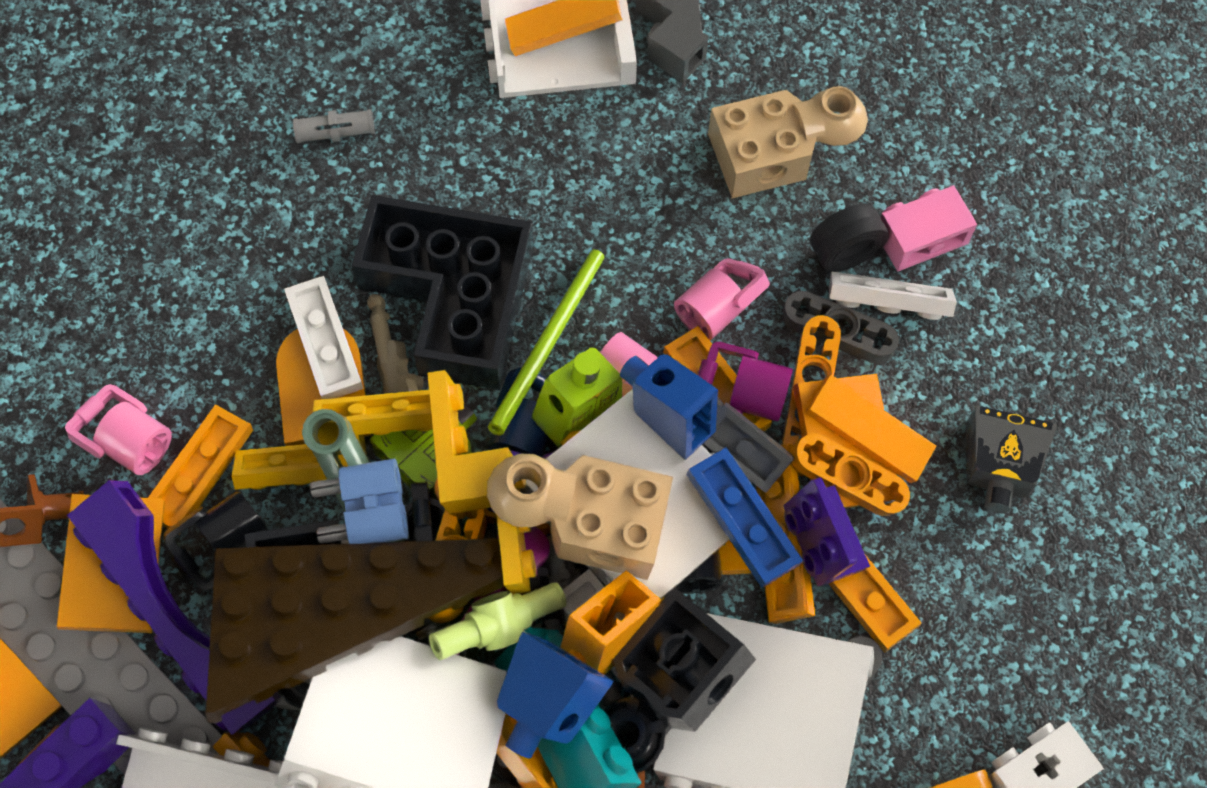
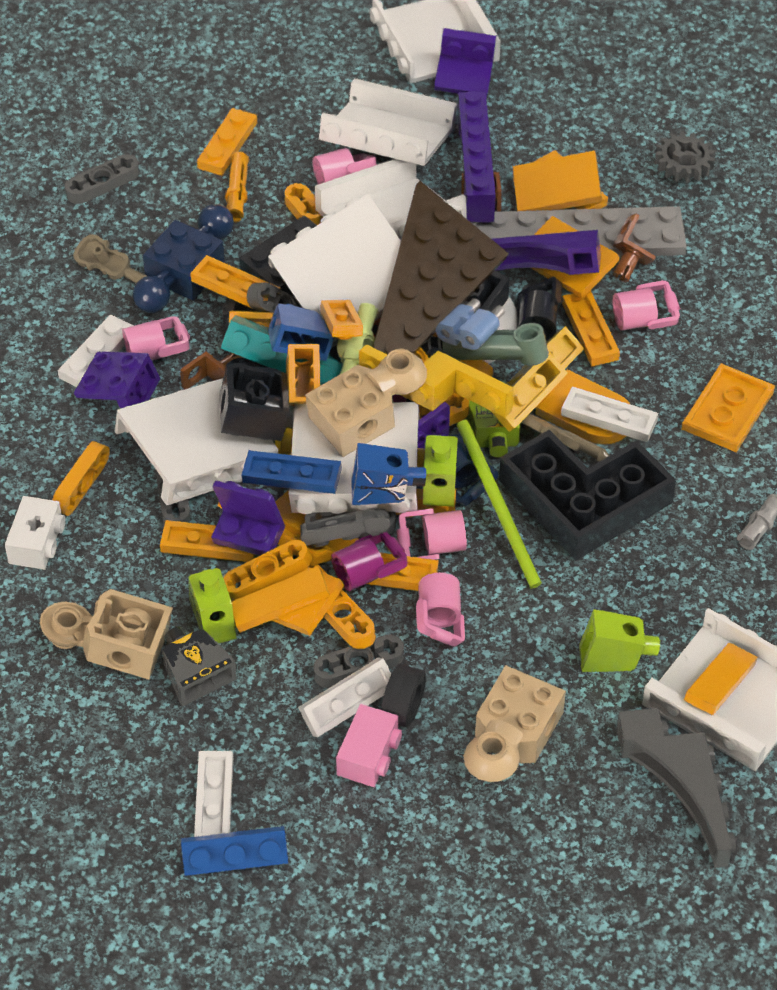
camera: 135 degrees right, 15 degrees down
(196, 263) = (728, 407): none -> light orange tile
(491, 648) = (341, 318): none -> light orange plate
(611, 124) = (615, 643): none -> lime torso
(937, 493) = (210, 595): none -> lime torso
(1064, 554) = (120, 635): none -> tan brick
(1104, 312) = (214, 793): none -> white plate
(1133, 244) = (234, 850): none -> blue plate

